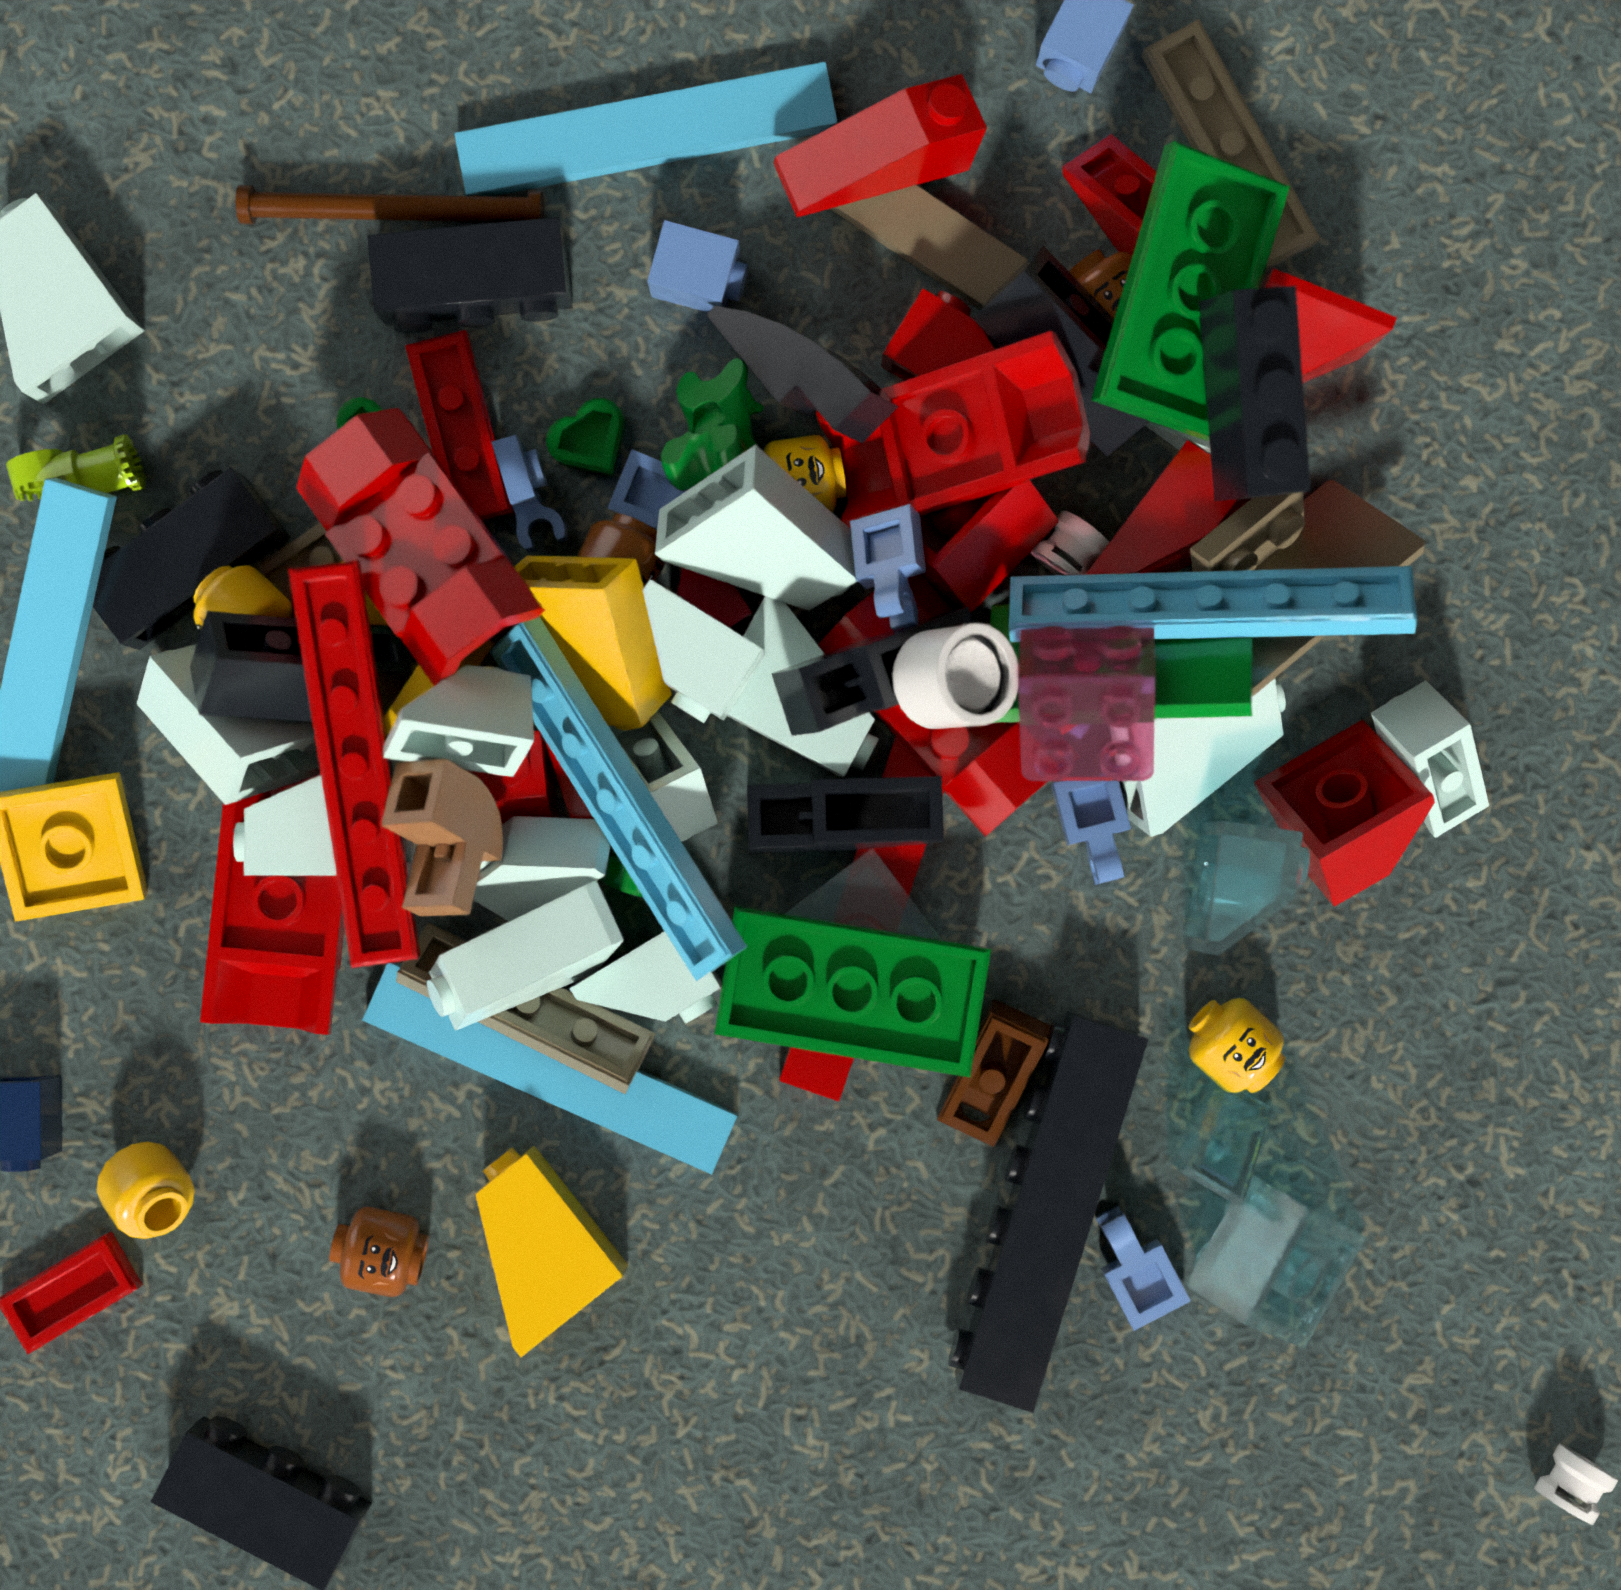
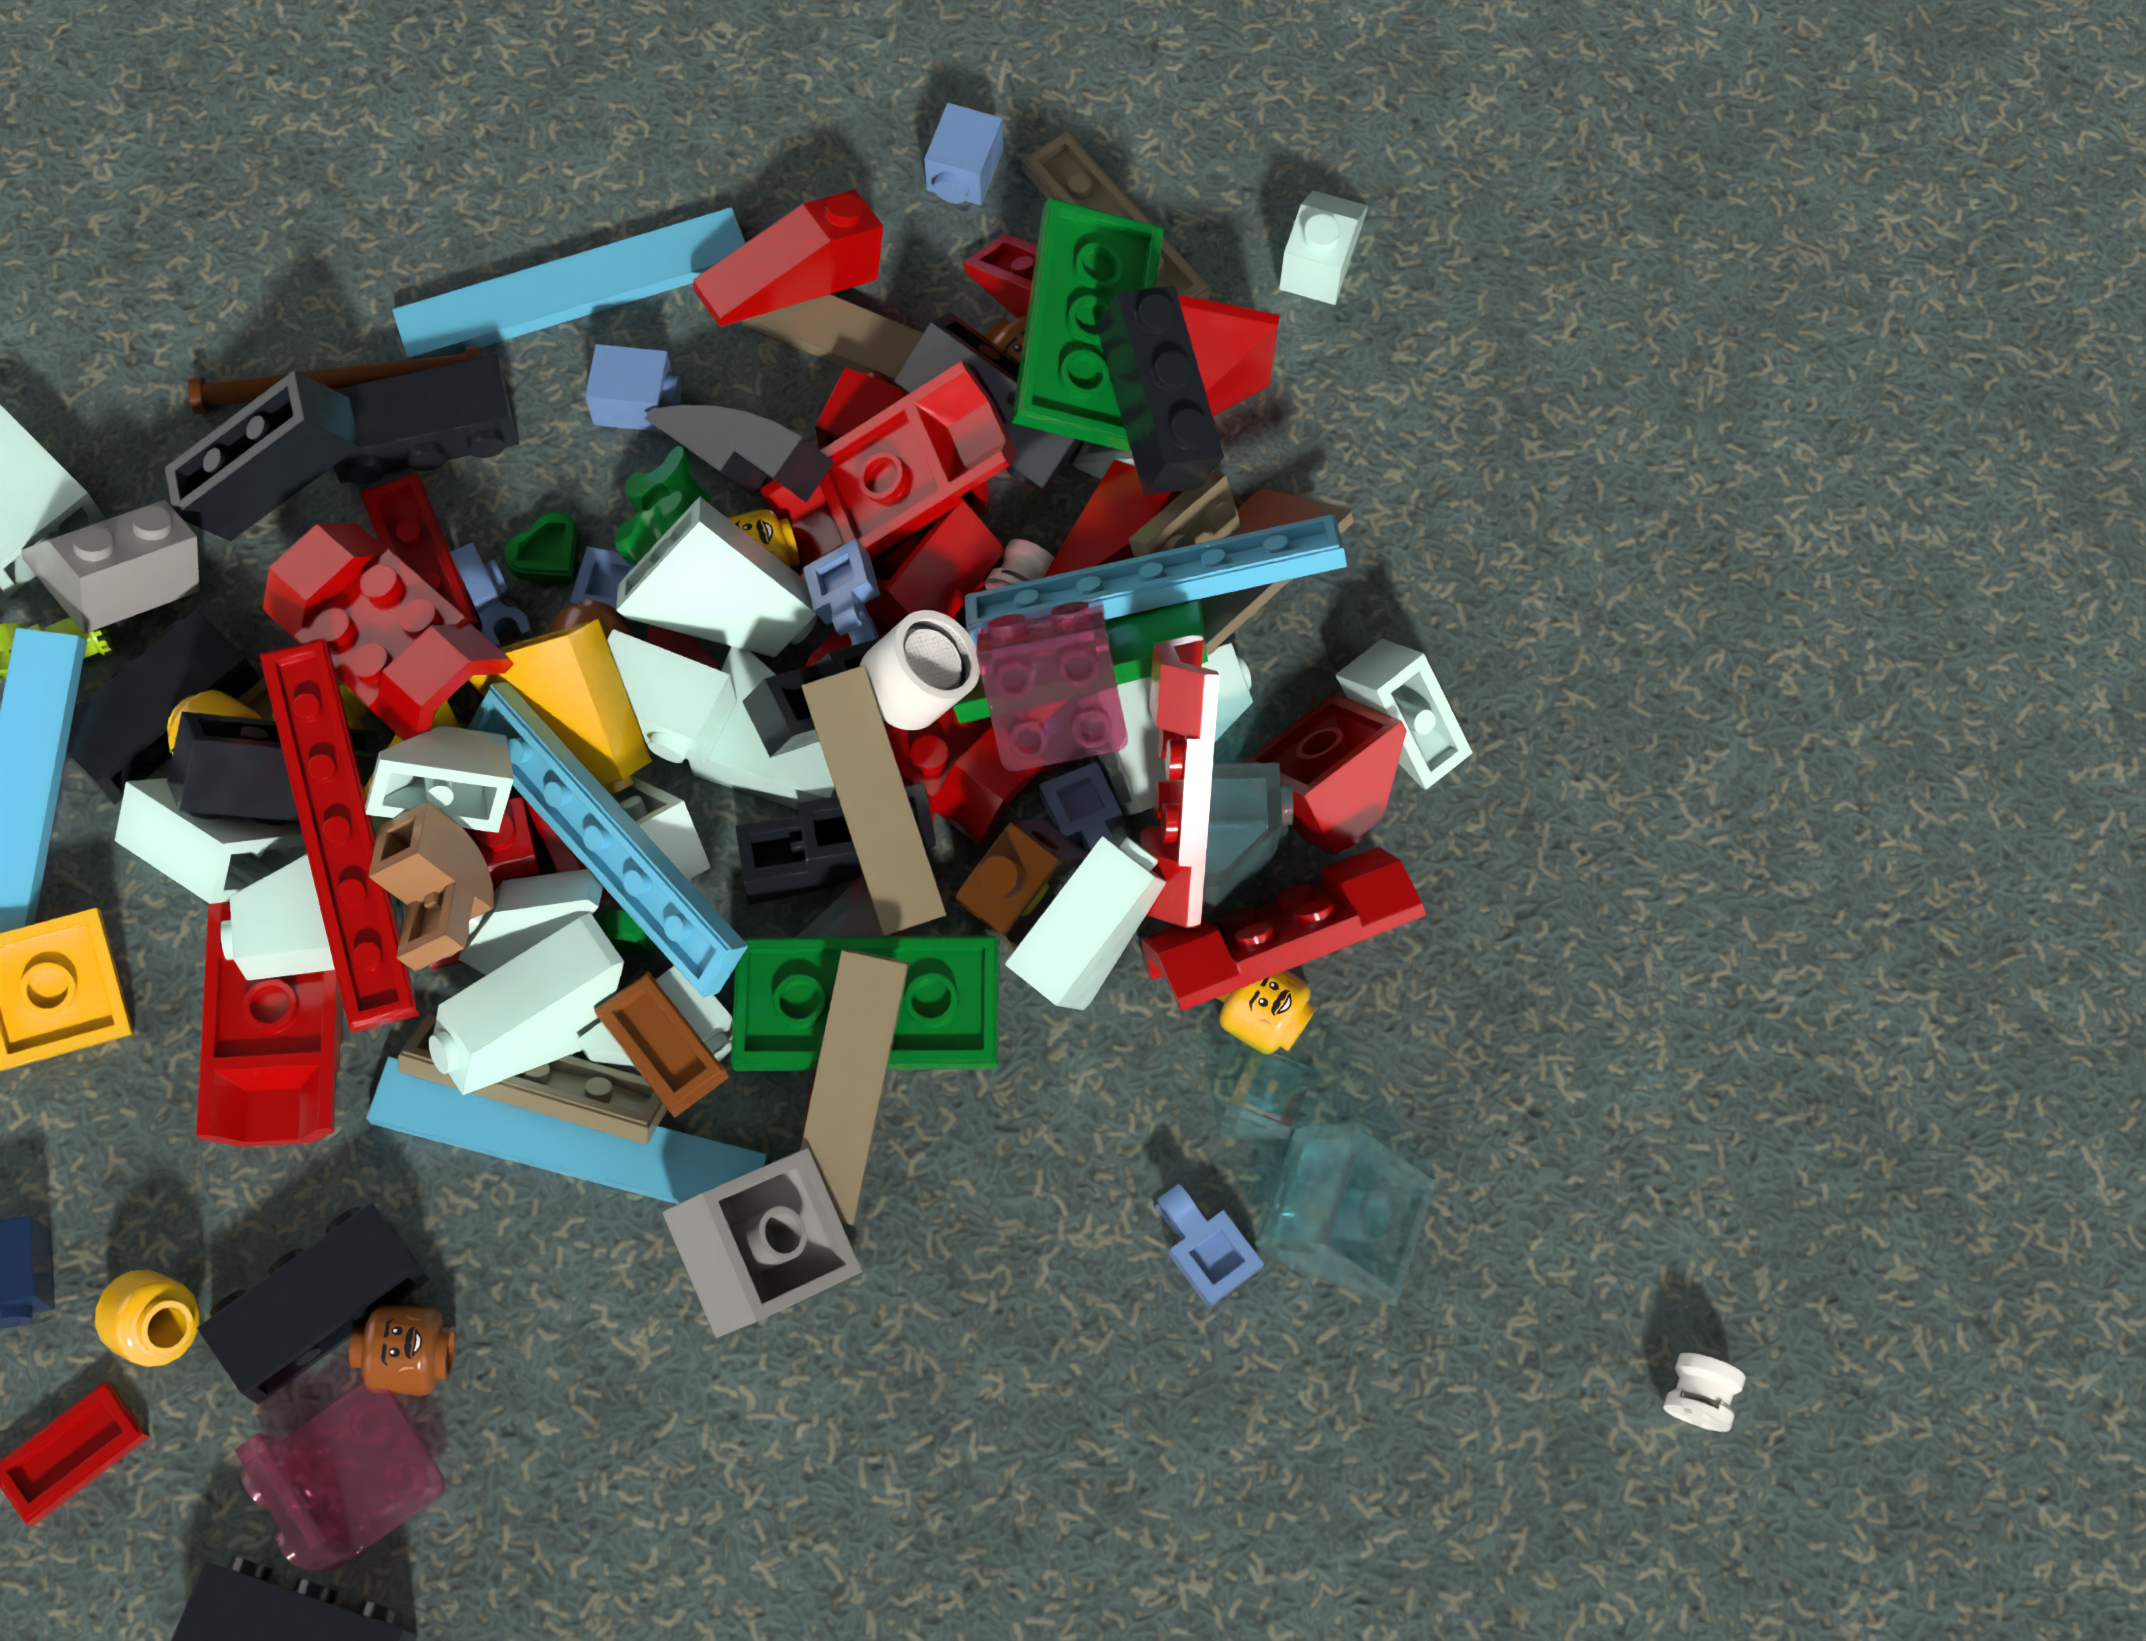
camera: 15 degrees left, 20 degrees down
(151, 400) = (119, 565): none -> light grey slope
(298, 1194) = (310, 1302): none -> black brick
(307, 308) = (262, 456): none -> black brick
(312, 1366) = (341, 1478): none -> clear pink bracket
(541, 1247) = (576, 1317): yellow slope -> none
(650, 1010) = (661, 1044): none -> dark orange tile
(723, 1213) = (761, 1242): none -> light grey slope
(826, 1075) = (853, 1073): none -> dark tan tile
(889, 799) = (873, 800): none -> dark tan tile
(1002, 1064) = (1027, 1076): reddish brown slope -> none
(1022, 895) = (1019, 878): none -> reddish brown torso
(1048, 1211) = (1101, 1198): black brick -> none
(1082, 965) = (1089, 924): none -> light aqua slope
(1202, 848) = (1185, 714): none -> piece
(1273, 987) = (1305, 923): none -> red piece
(1451, 203) = (1321, 246): none -> light aqua slope

